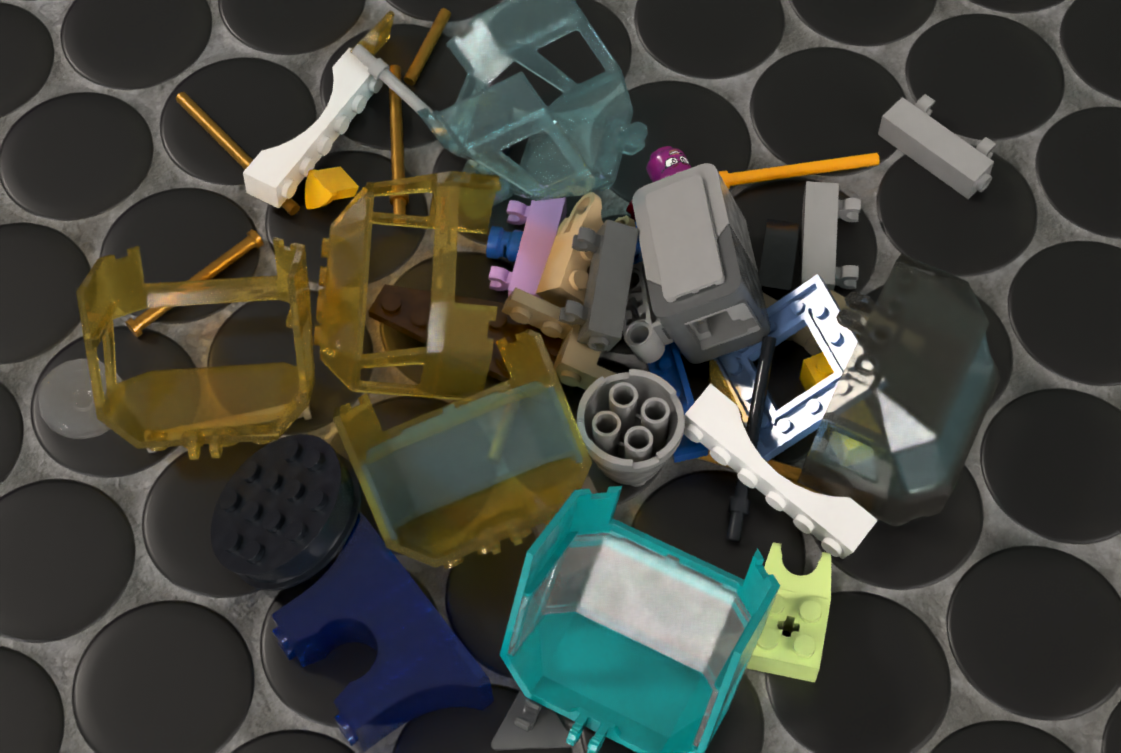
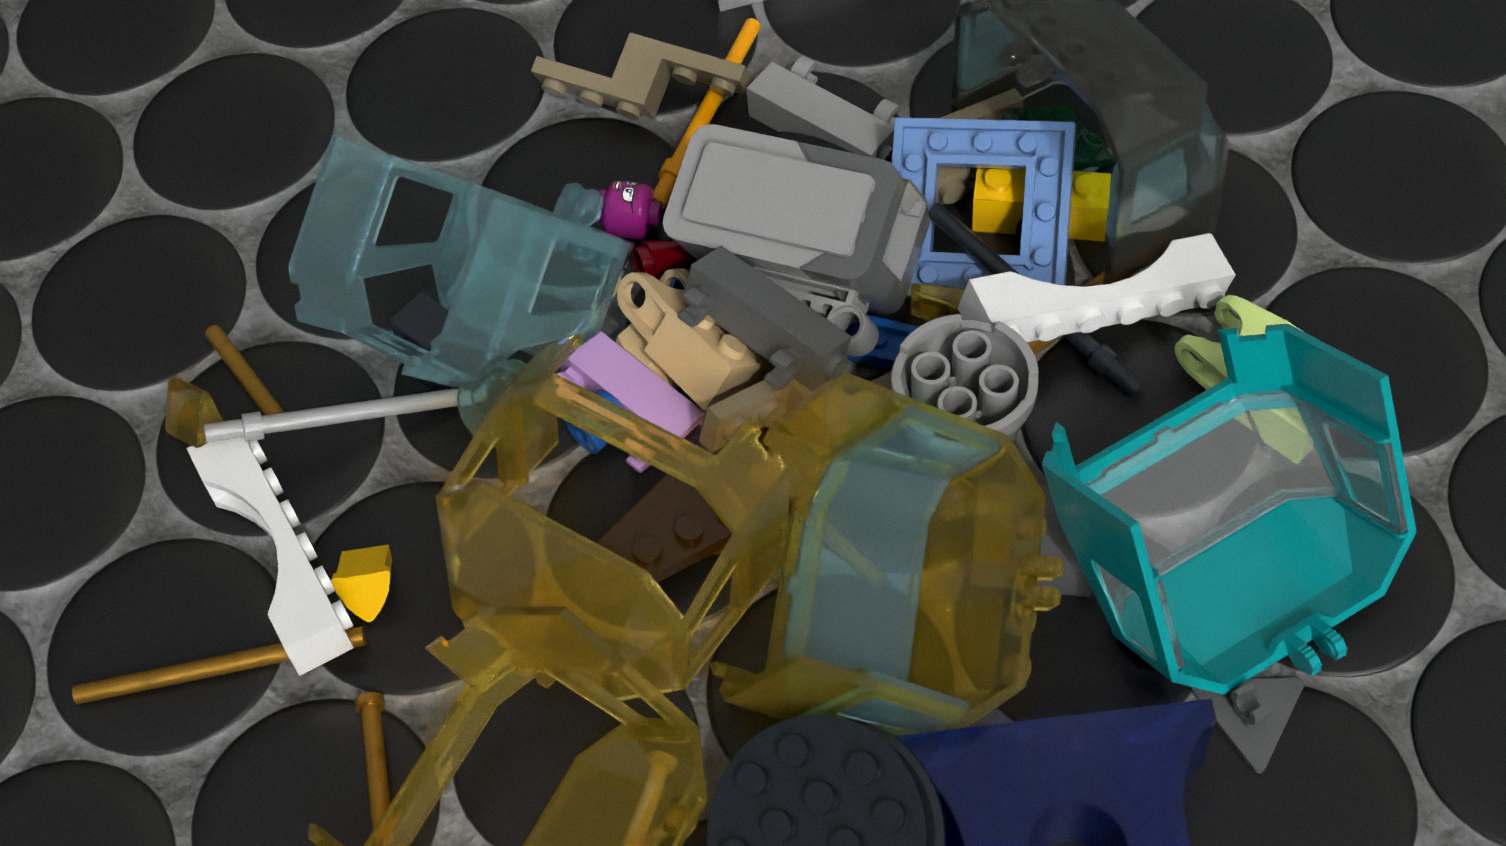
camera: 55 degrees left, 5 degrees down
(397, 147) = (356, 472): pearl gold bar -> none
(777, 118) = (642, 77): none -> dark tan bracket

